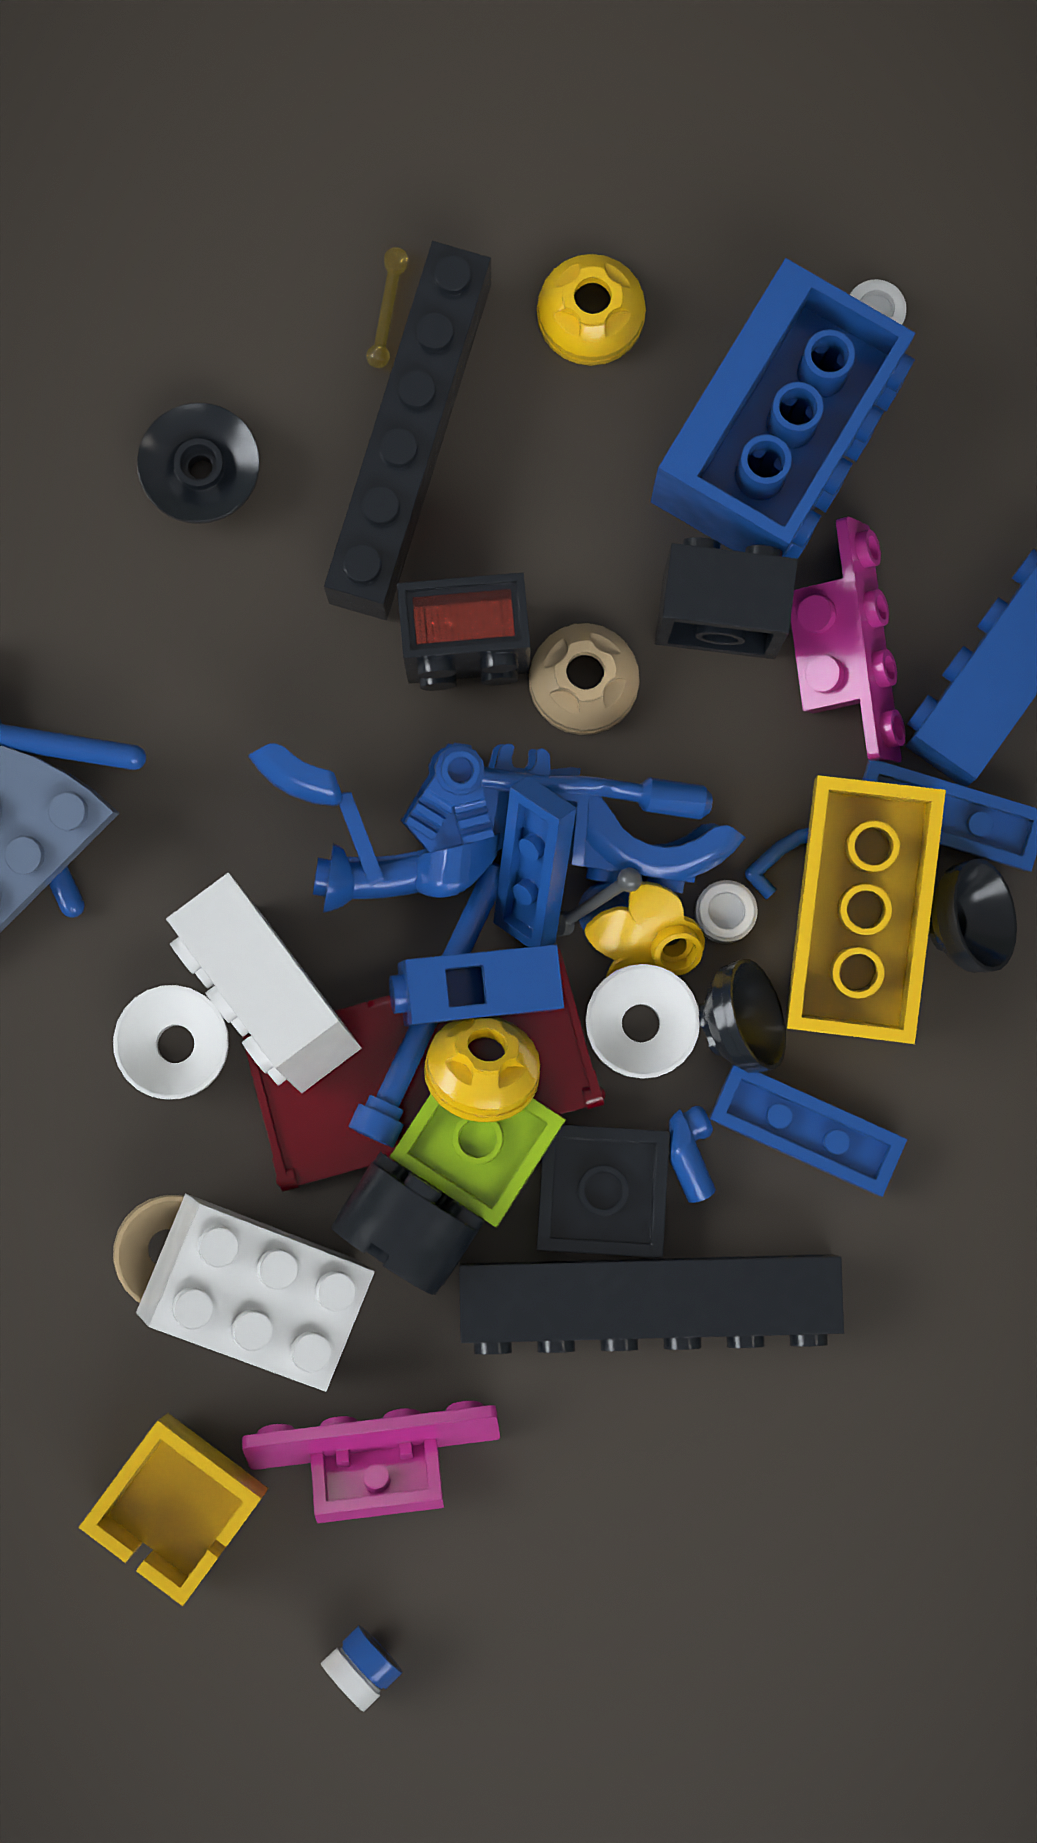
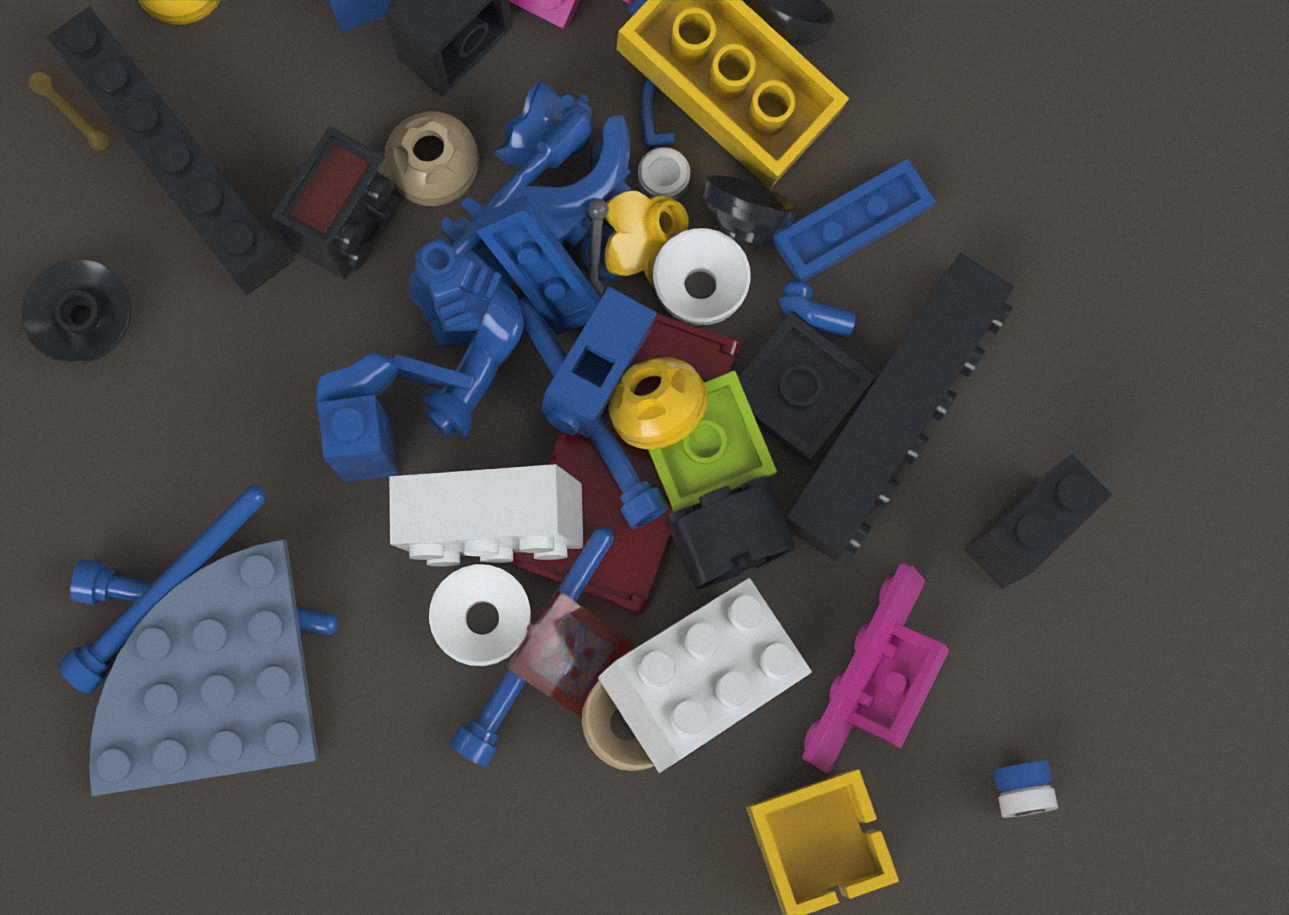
camera: 55 degrees left, 5 degrees down
(59, 1120) = (479, 736): none -> blue piece
(194, 1149) = (567, 652): none -> piece
(251, 813) = (357, 438): none -> blue brick
(618, 1512) = (1038, 522): none -> black brick
(686, 758) = (540, 114): none -> blue hair

